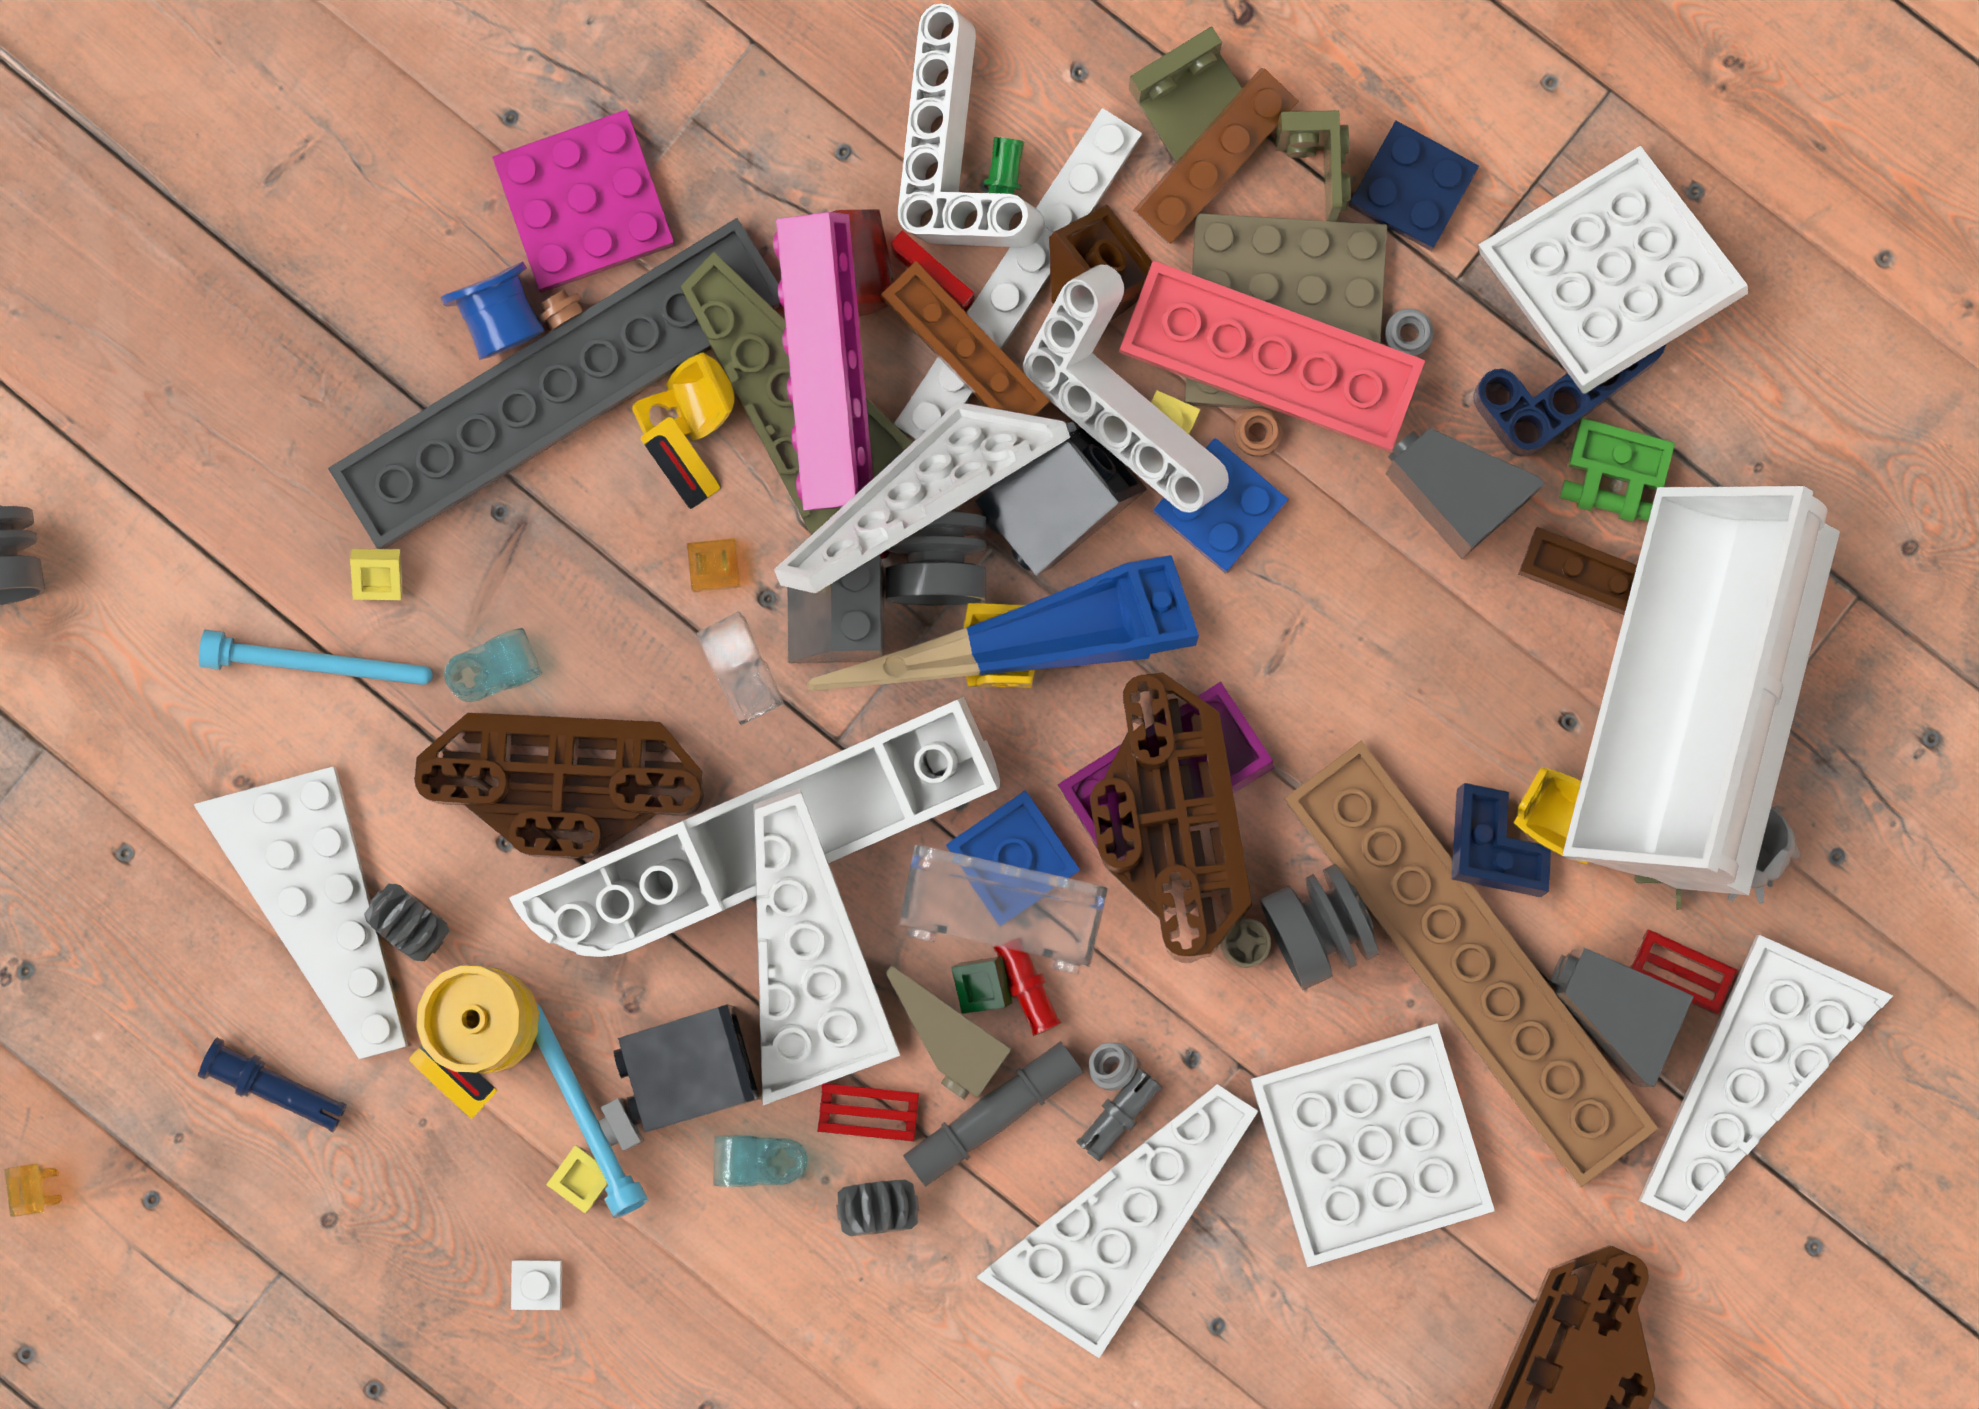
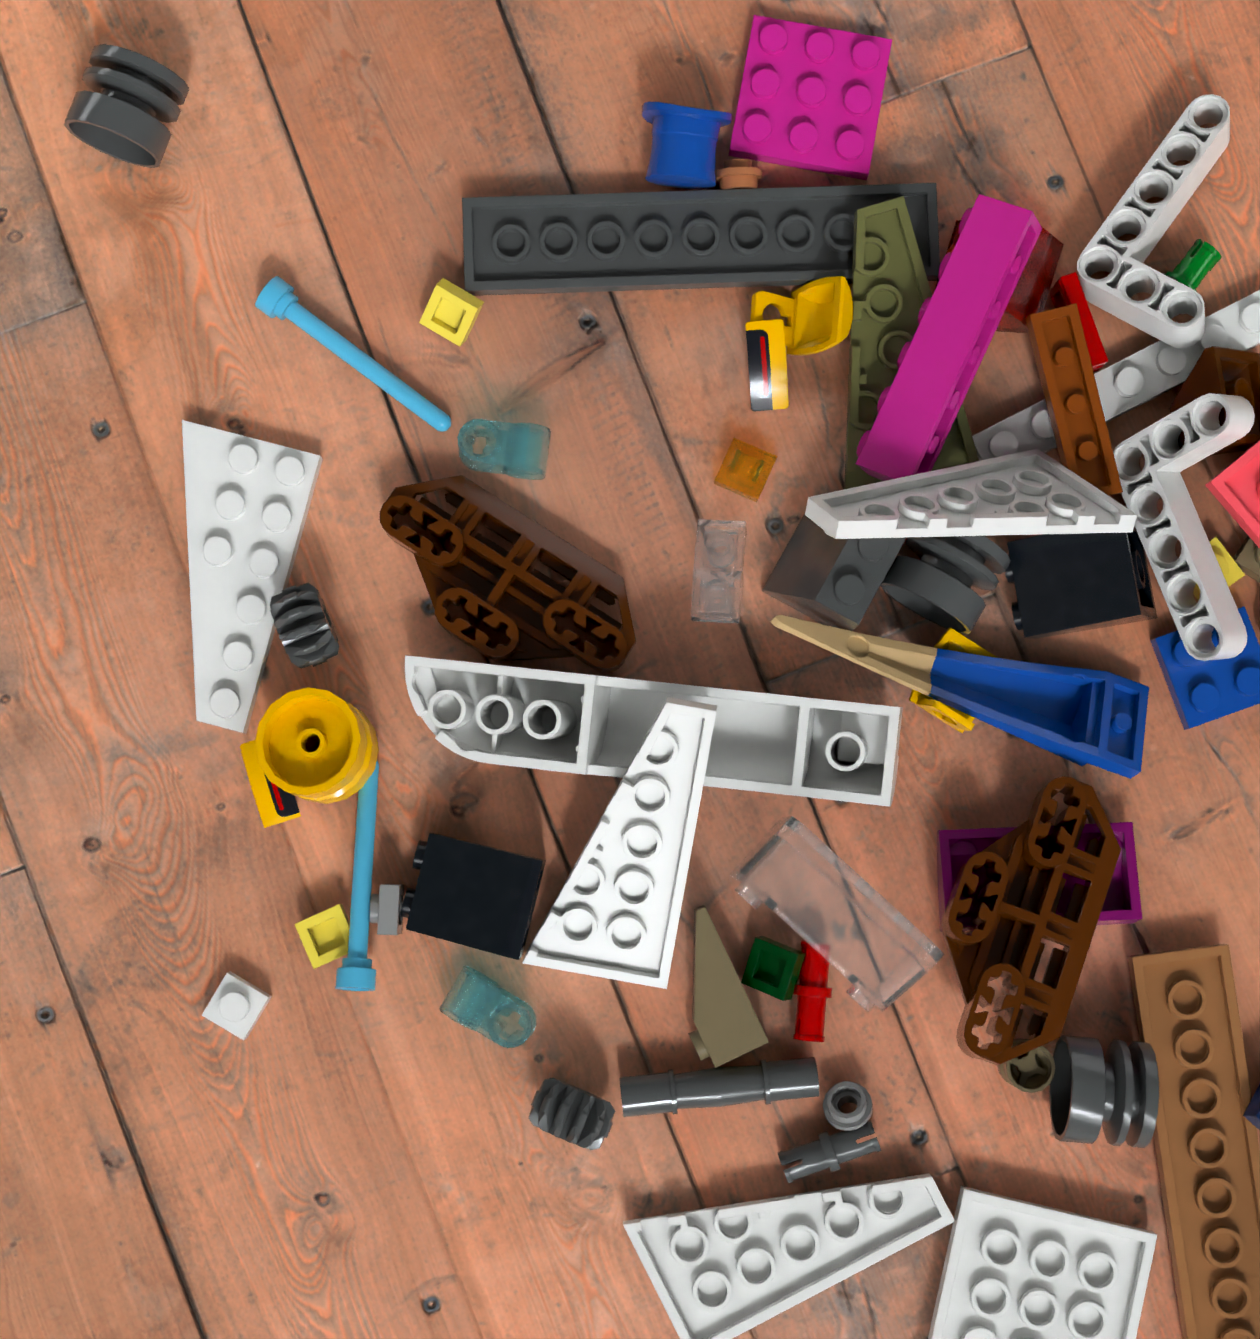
camera: 20 degrees right, 0 degrees up
(250, 1076) = (95, 683): dark blue pin -> none
(827, 1108) = (643, 1046): red tile -> none
(1017, 837) = (879, 855): blue plate -> none

